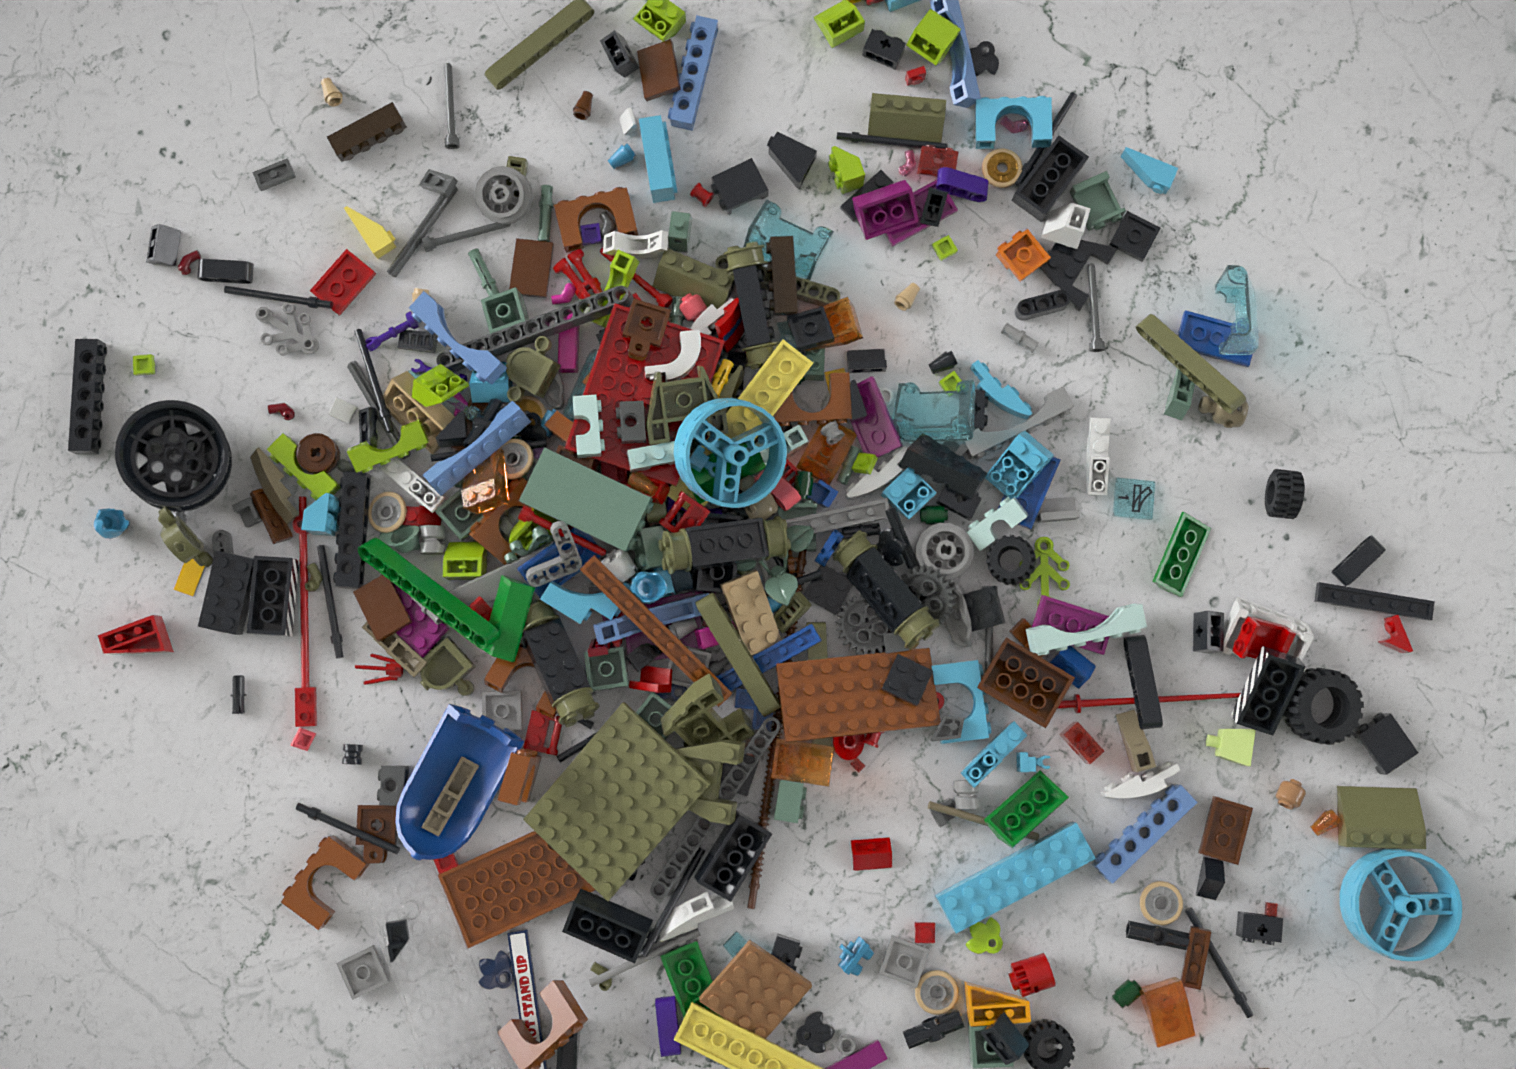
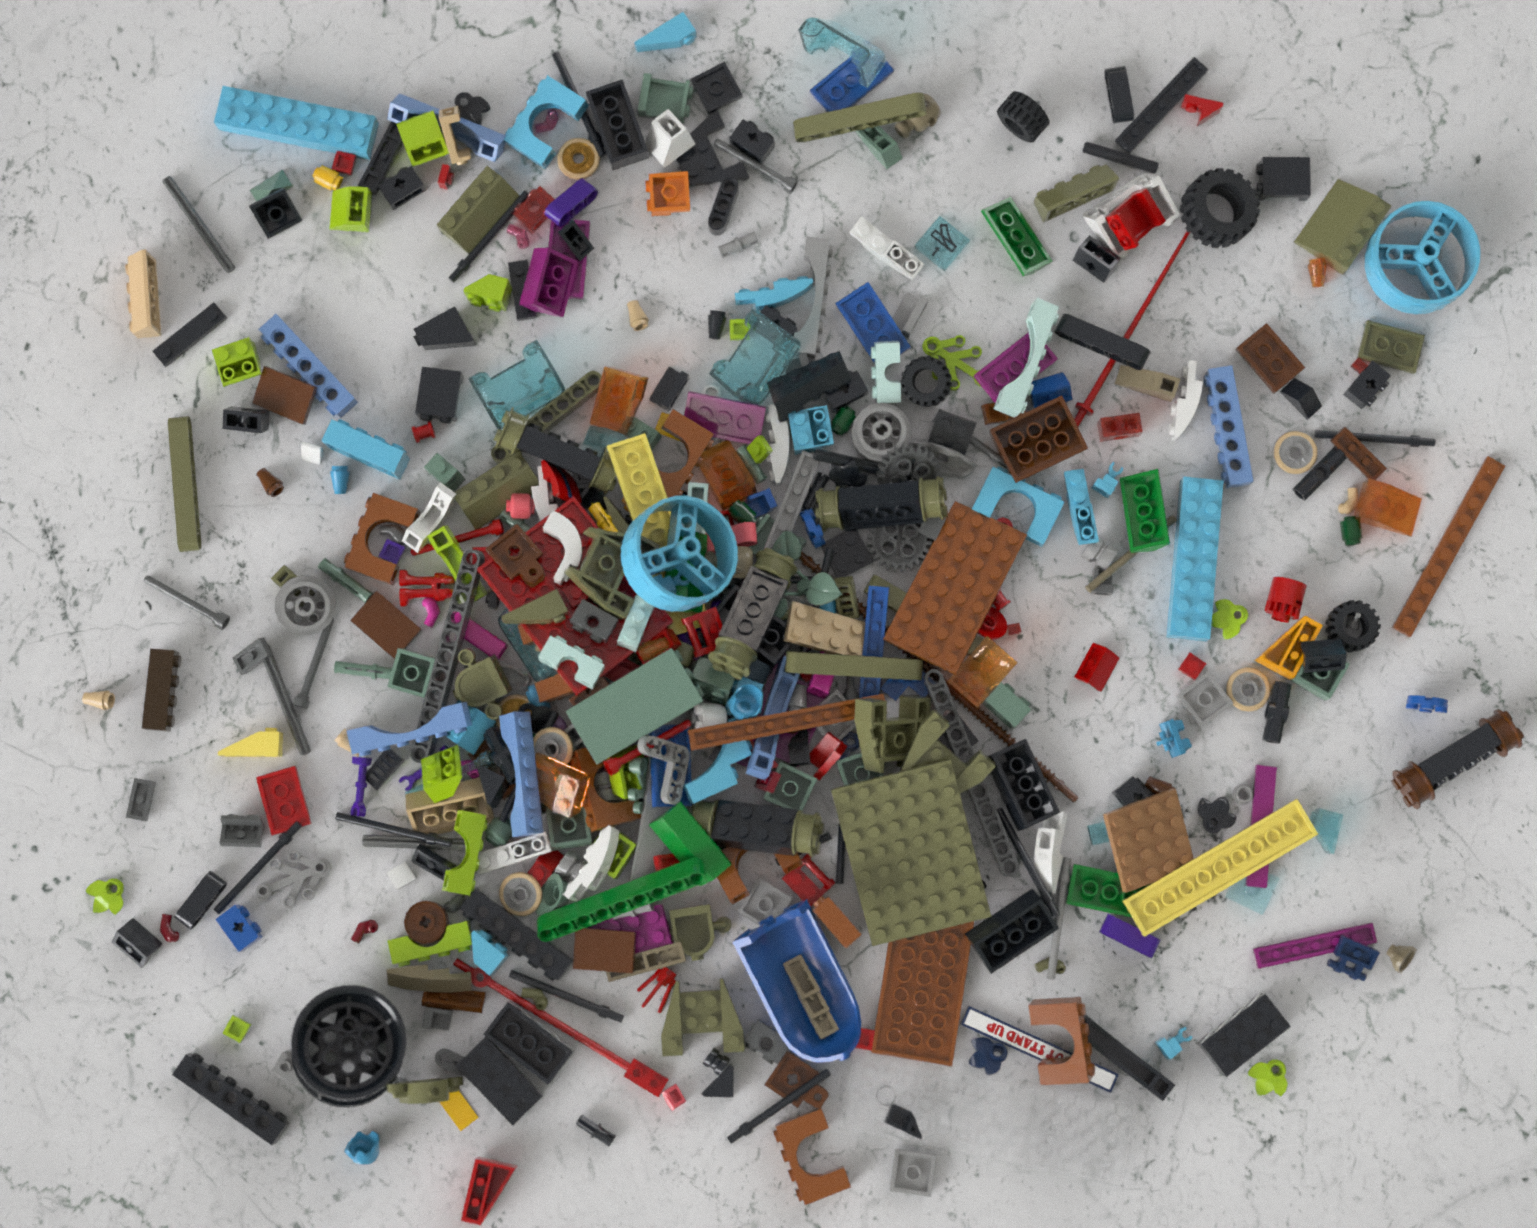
camera: 55 degrees left, 0 degrees up
(183, 199) = (104, 897): none -> lime plate
(220, 305) = (229, 923): none -> blue brick
(298, 266) = (241, 831): none -> dark grey bracket
(336, 772) = (723, 1085): none -> black slope
(382, 716) = (701, 1013): none -> olive wedge
(422, 462) = (498, 833): none -> sand green head
(449, 554) = (599, 861): none -> white slope
(614, 376) = (539, 611): none -> olive slope
(782, 275) = (548, 409): dark brown brick -> none
(791, 560) = (804, 570): reddish brown piece -> none
(806, 969) = (1157, 786): none -> reddish brown cone
(810, 328) = (611, 416): black plate -> none
(832, 433) = (715, 459): light grey wheel -> none
(857, 406) = (706, 421): black slope -> none
(894, 19) = (382, 159): none -> black plate
(907, 680) = (970, 537): black plate -> none
(944, 248) = (615, 255): lime plate -> none
(949, 728) = (1035, 529): dark grey piece -> none
(957, 43) = (446, 117): none -> tan panel
(1019, 465) = (850, 320): medium azure slope -> none
(1106, 301) = (757, 150): none -> black brick
(1150, 978) = (1351, 503): none -> tan arm
(1233, 745) = (1204, 303): yellowish green torso -> none
(1252, 578) = (1075, 192): none -> olive slope
(1268, 690) = (1178, 244): black brick -> none
(1290, 794) = (1275, 284): medium nougat head -> none
(1305, 926) = (1390, 347): none -> olive tile
(1307, 596) = (1120, 157): none -> black axle

